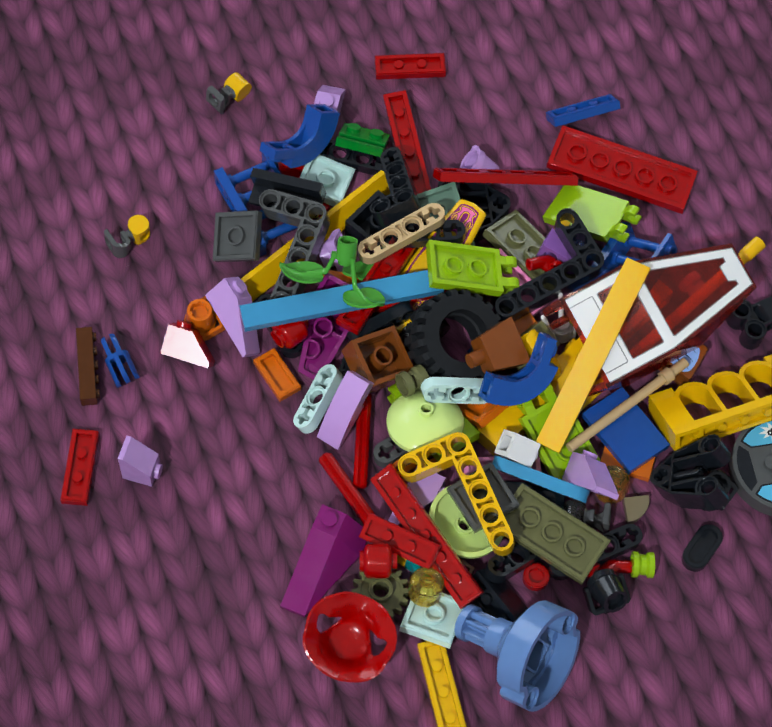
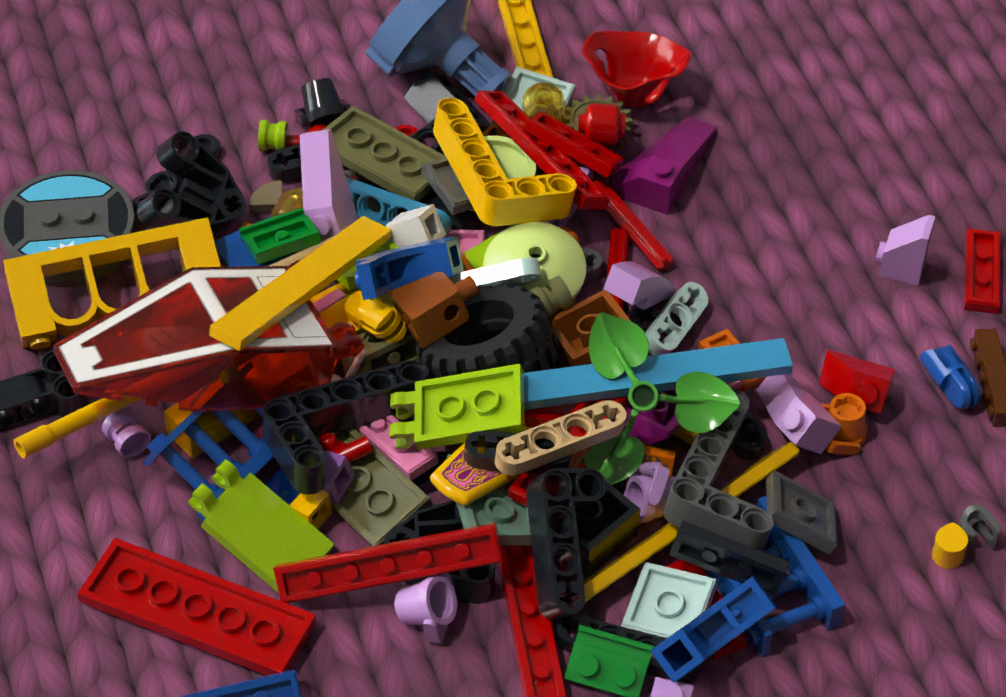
camera: 175 degrees left, 15 degrees down
(619, 439) = (279, 236): none -> green plate

